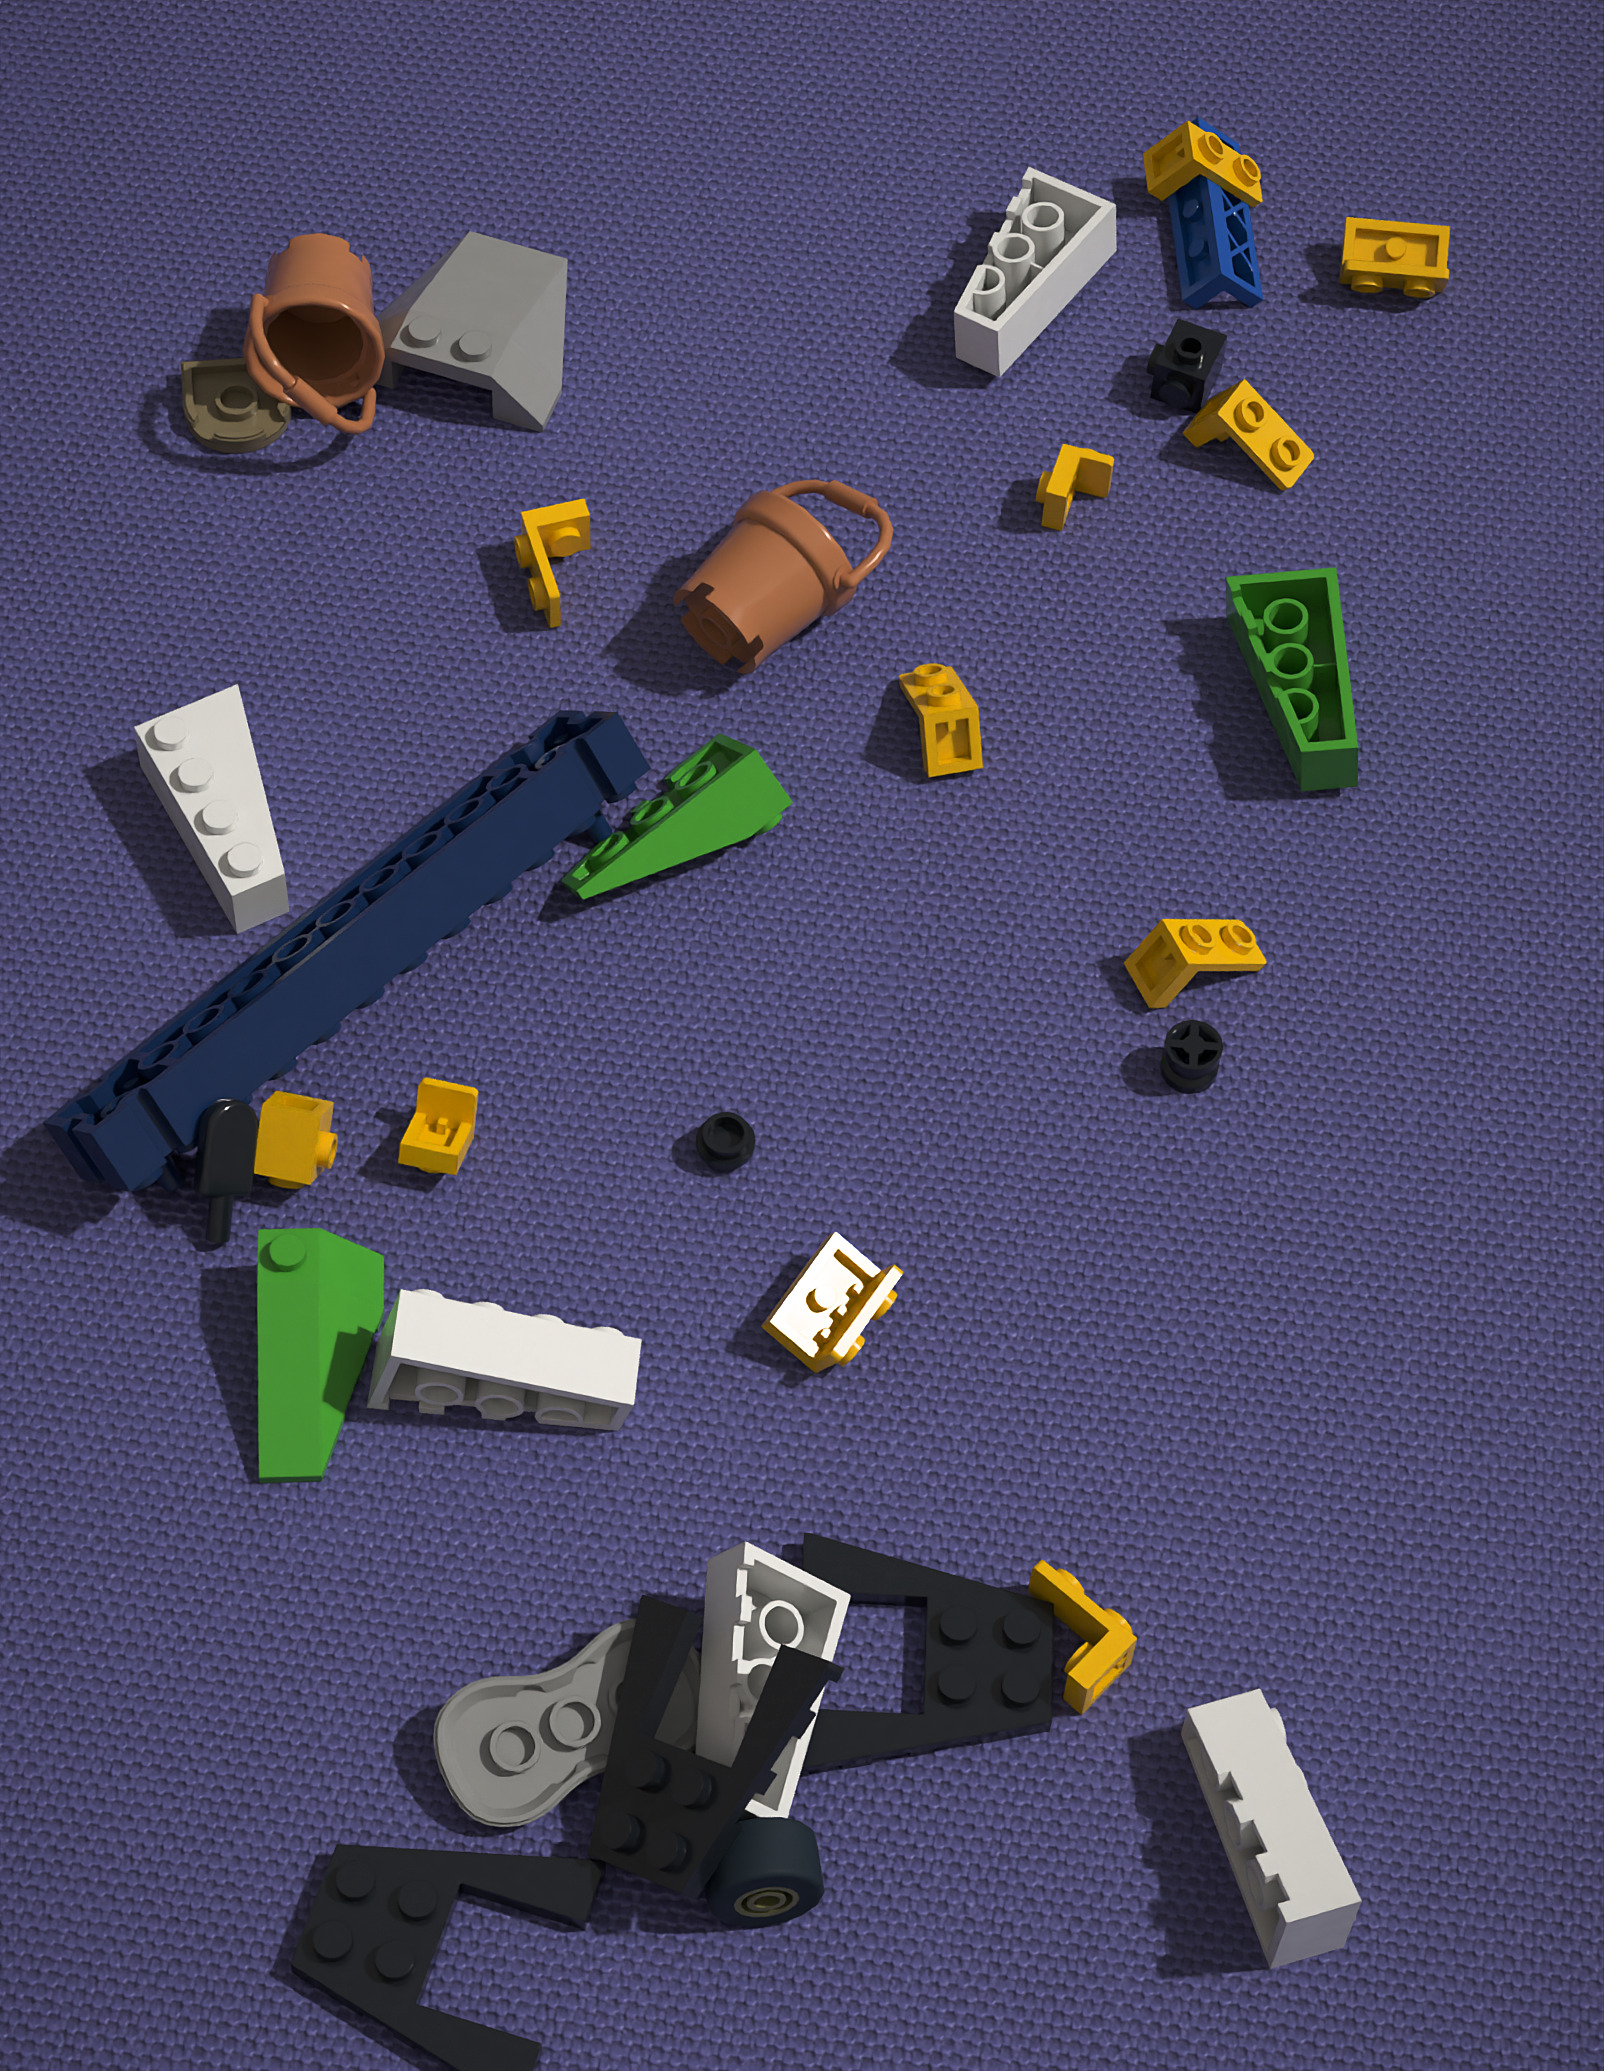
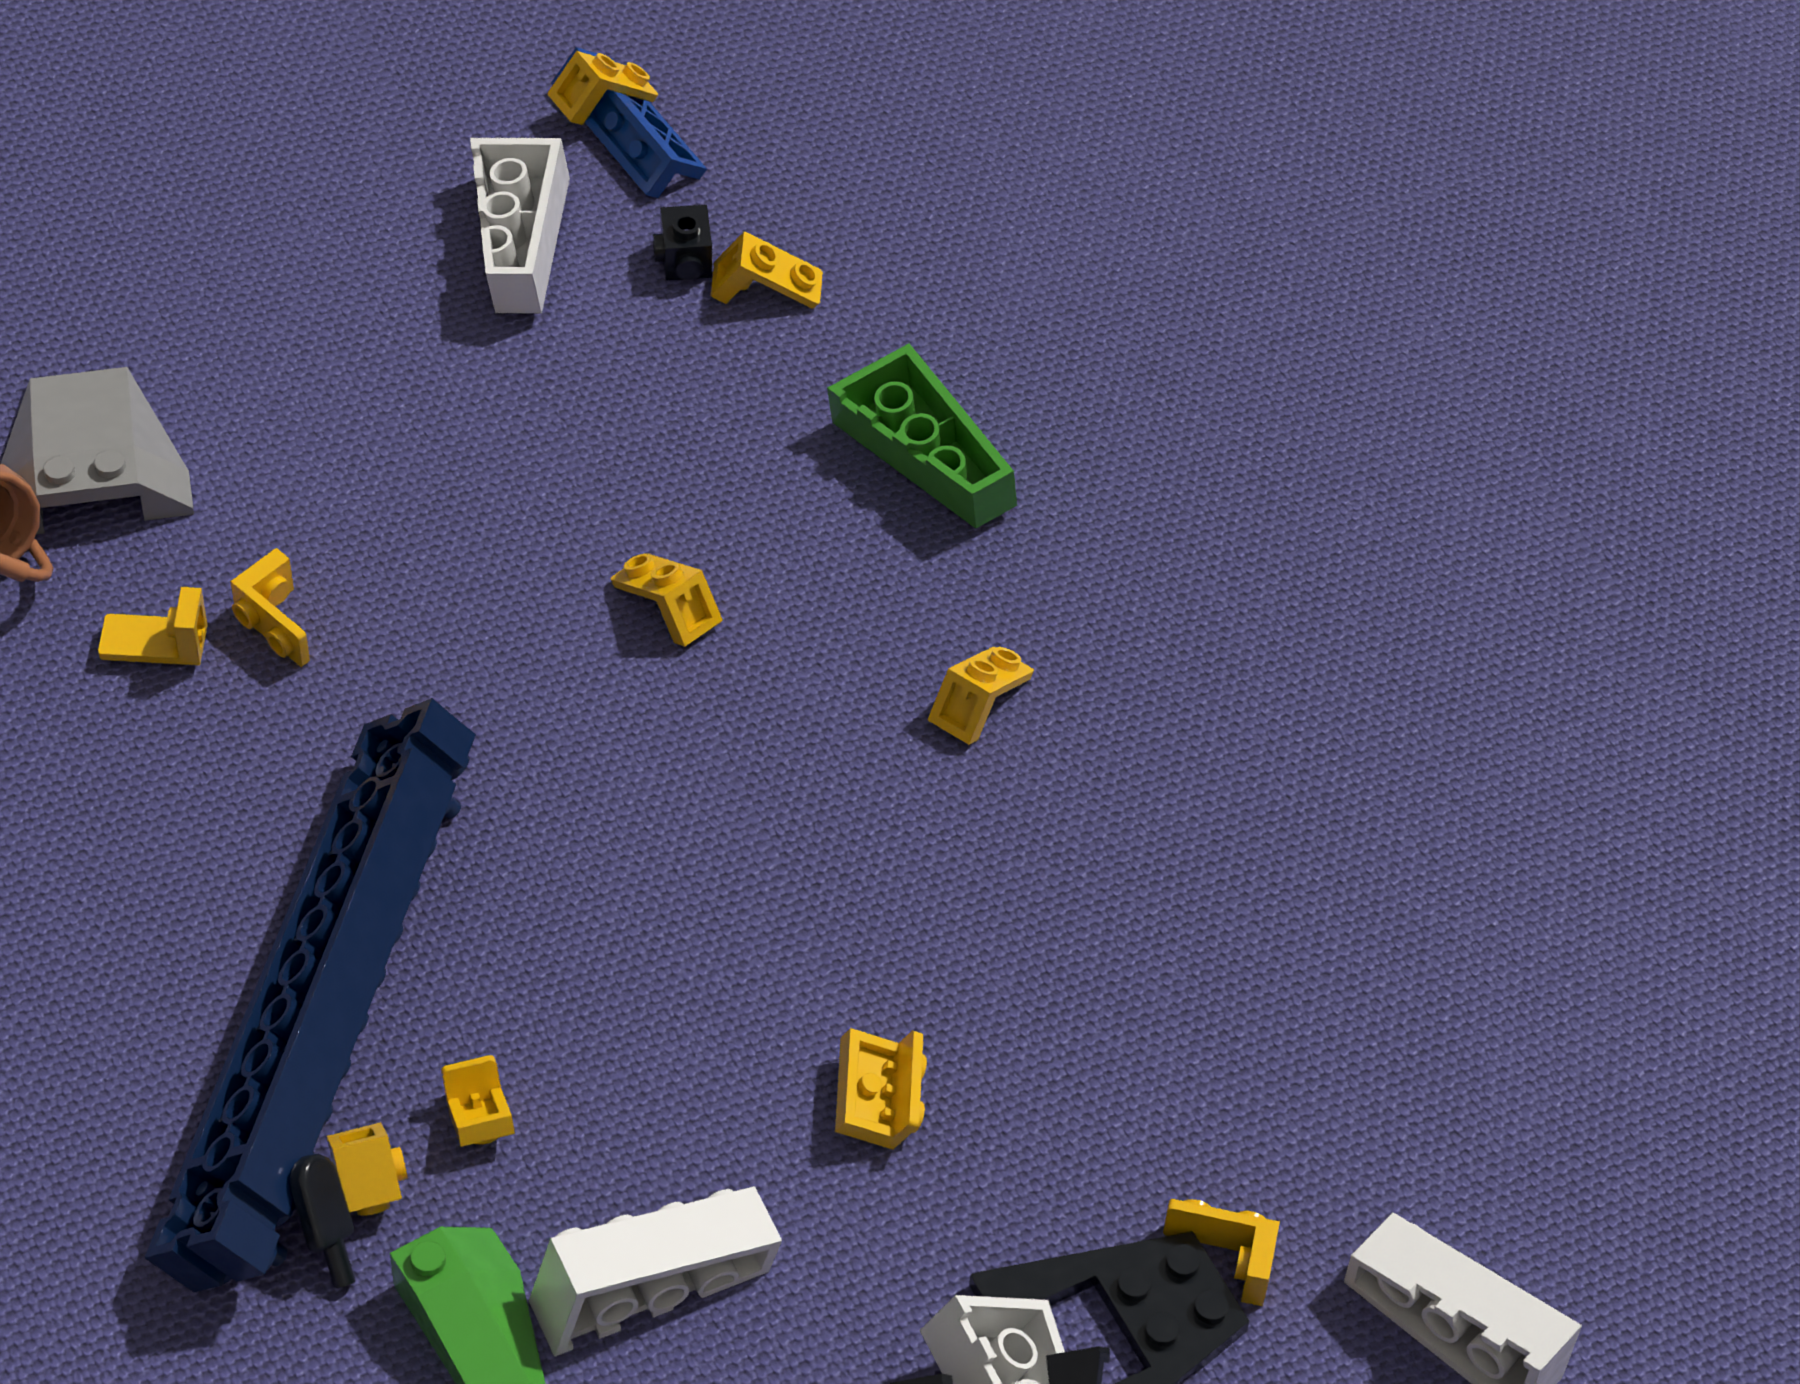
camera: 30 degrees left, 5 degrees down
(214, 794) = (123, 930): white wedge -> none
(436, 542) = (156, 638): none -> yellow bracket
(711, 802) = (526, 746): bright green wedge -> none
(725, 1141) = (710, 1002): black plate -> none
(776, 573) = (474, 536): nougat piece -> none
(1074, 471) = (651, 360): yellow bracket -> none
(1202, 1048) = (1034, 755): black wheel -> none
(1394, 256) = (788, 94): yellow bracket -> none

